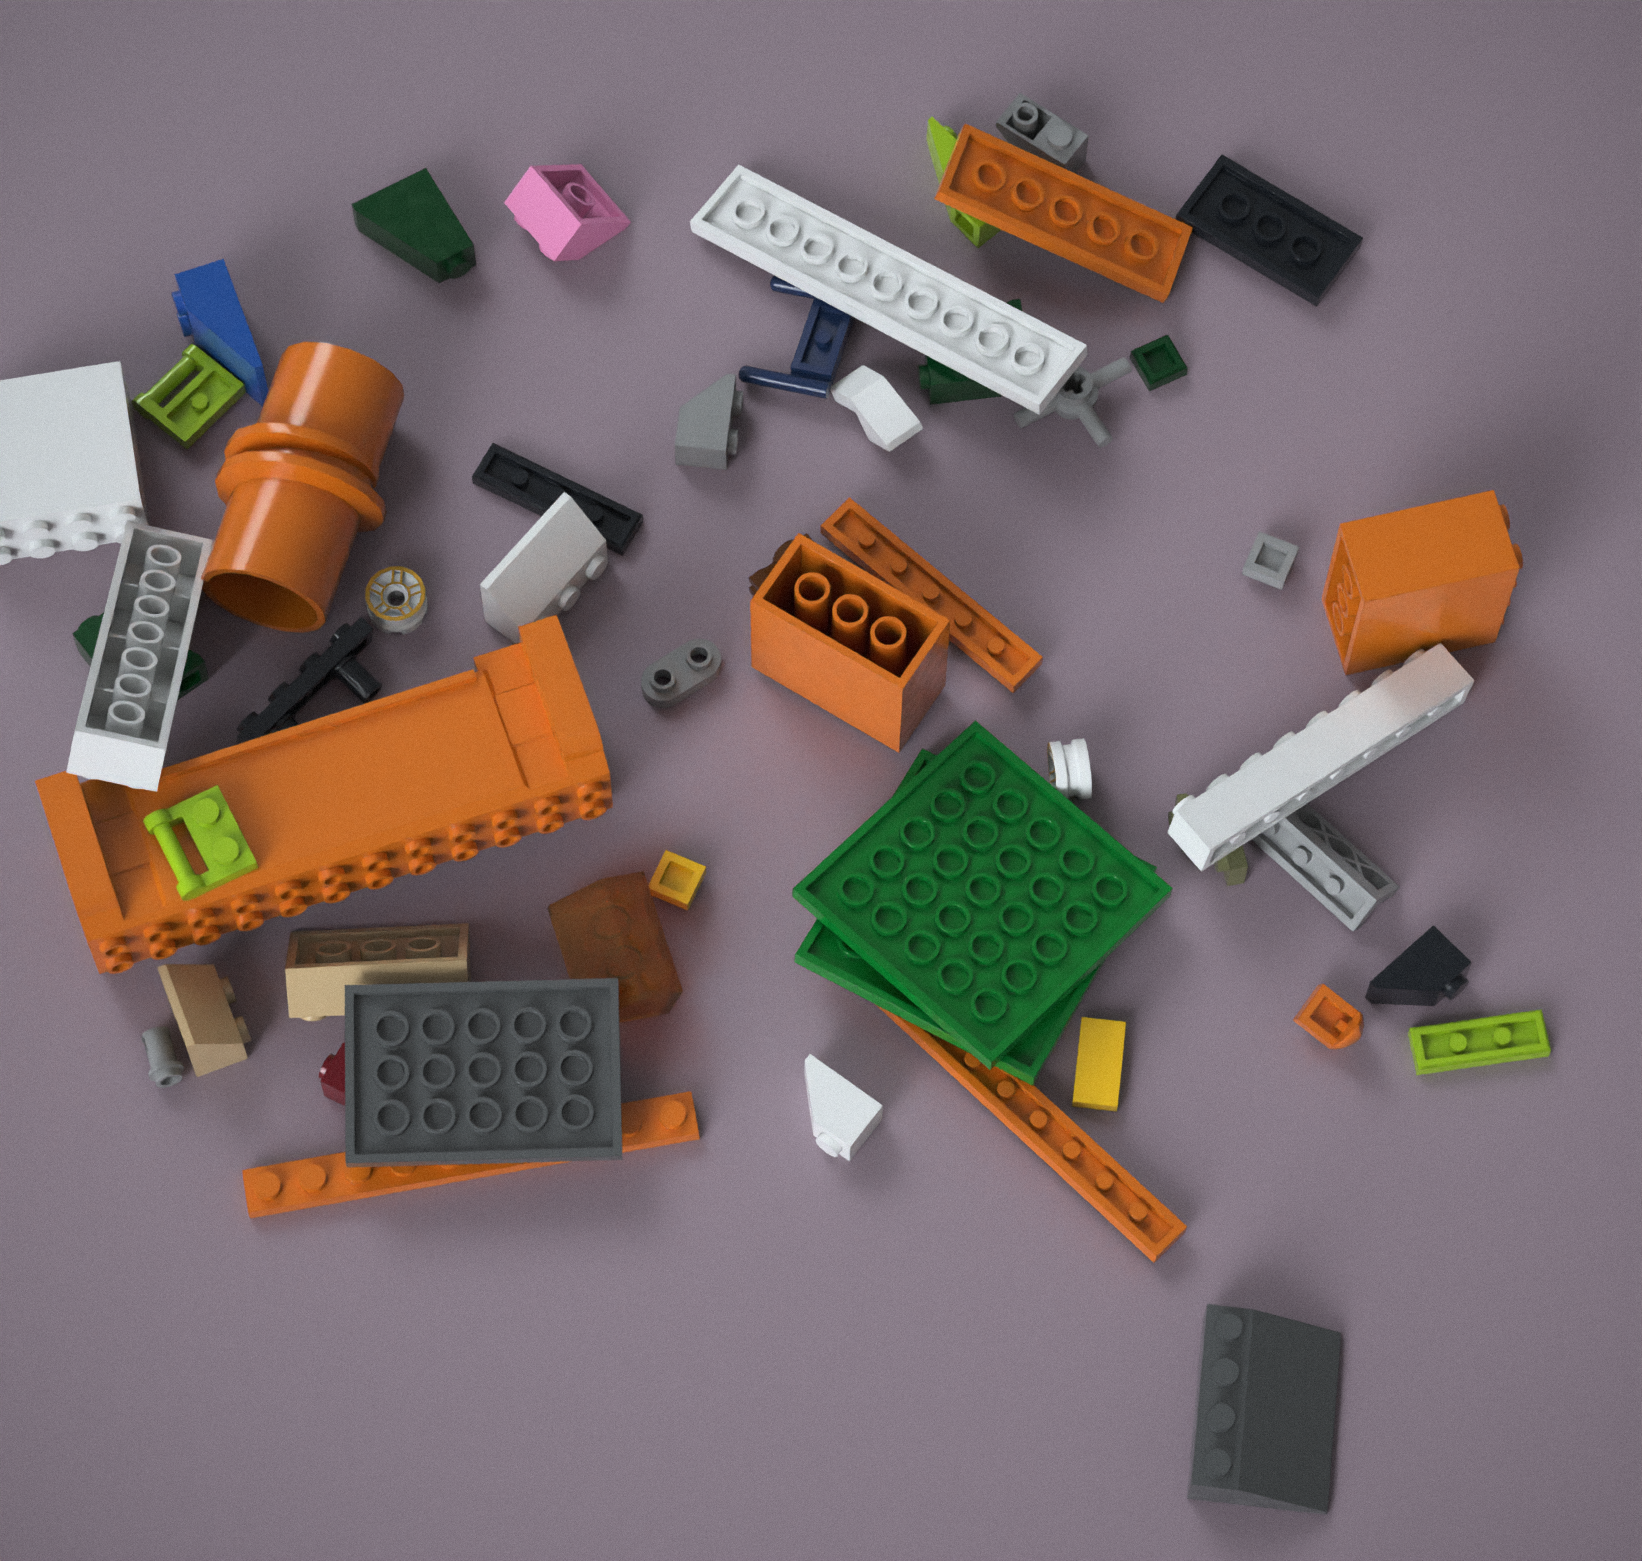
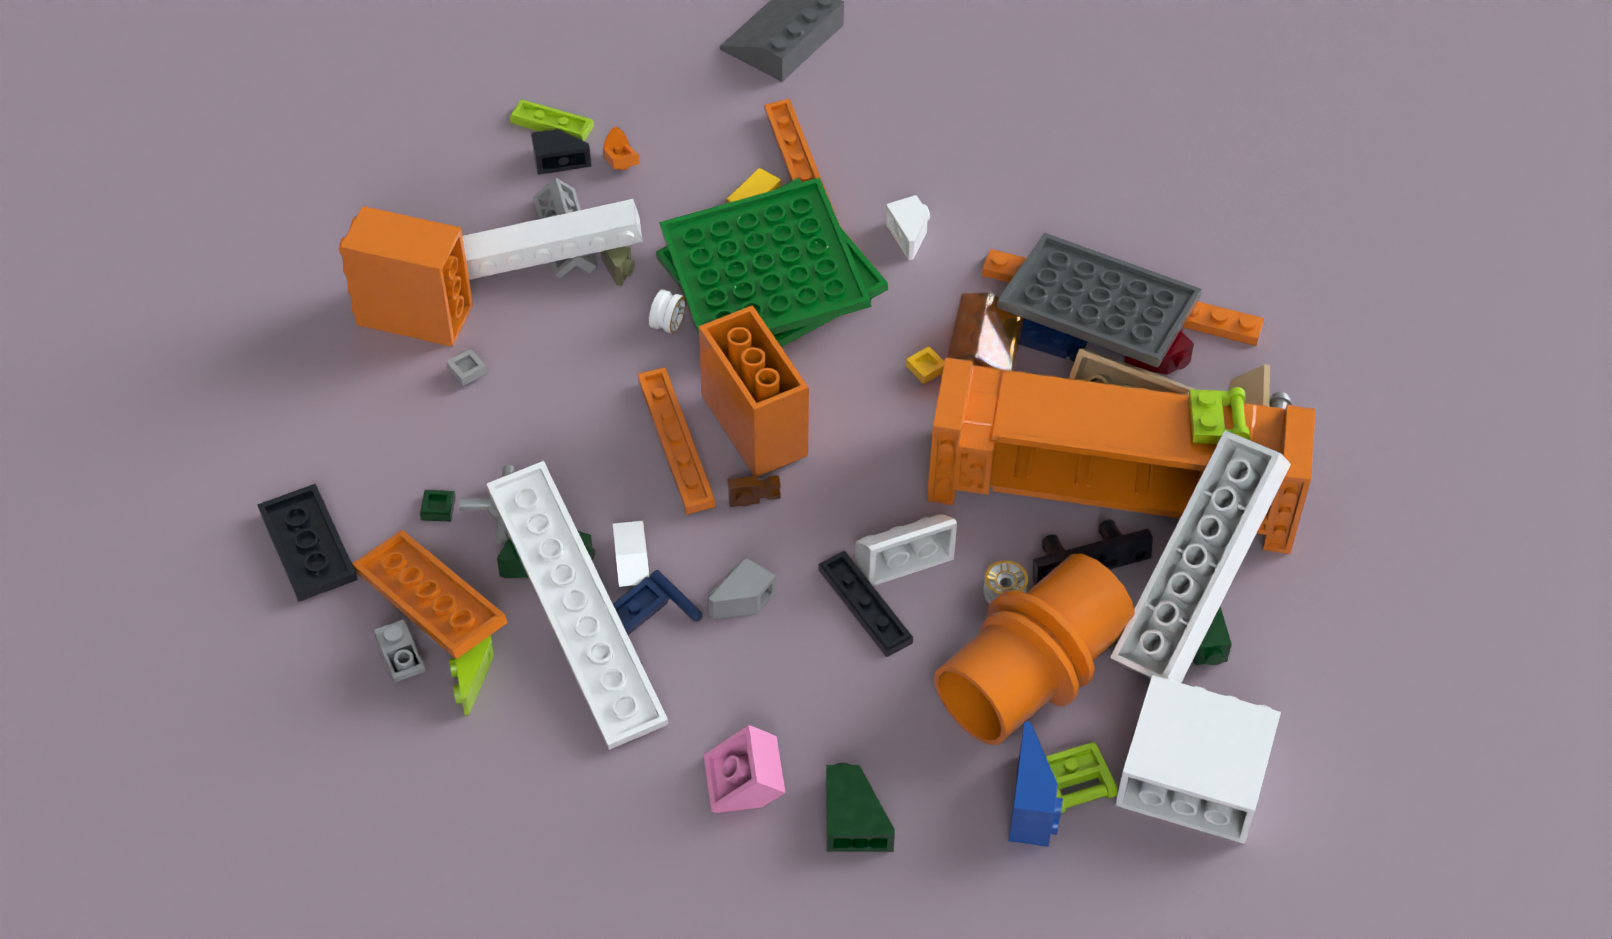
camera: 150 degrees left, 15 degrees down
(683, 672) = (852, 471): light grey plate -> none

